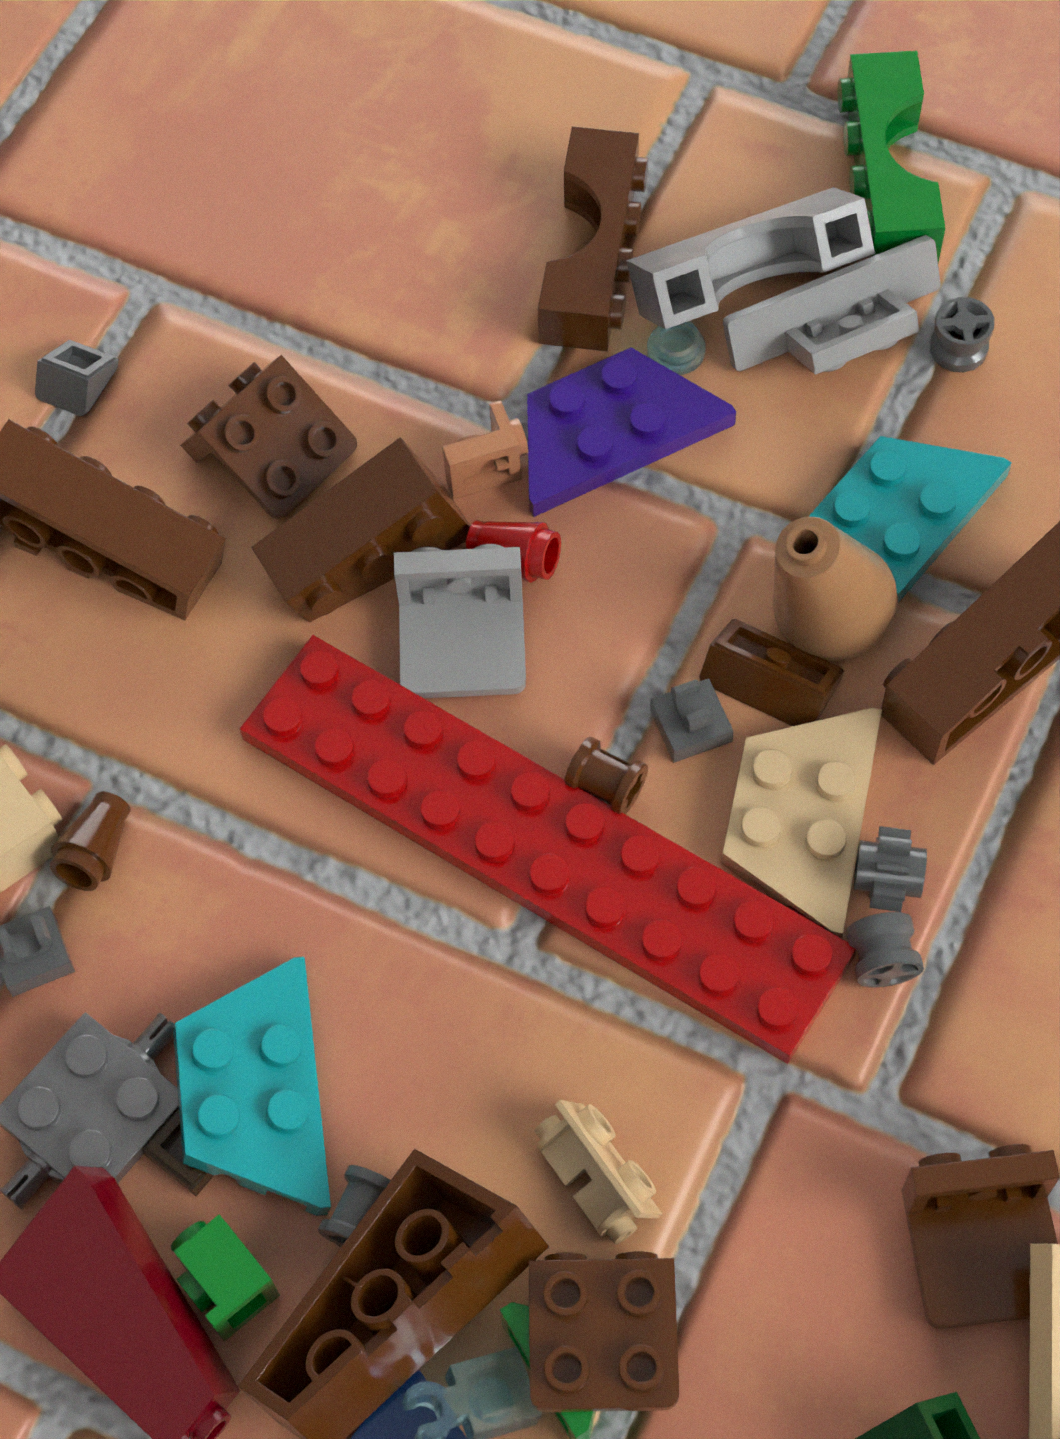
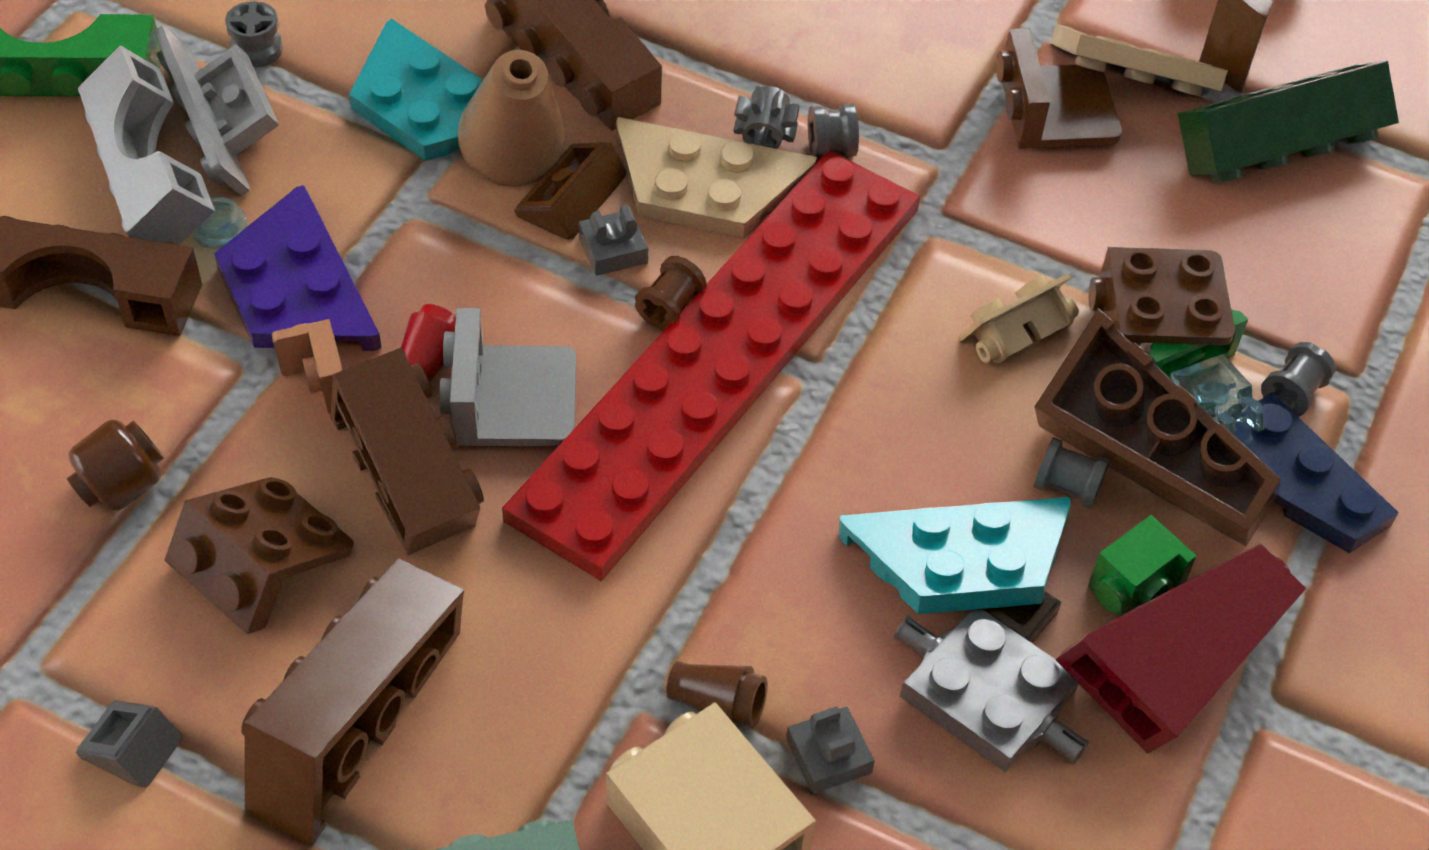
camera: 95 degrees left, 10 degrees down
(354, 308) = (114, 465): none -> reddish brown head

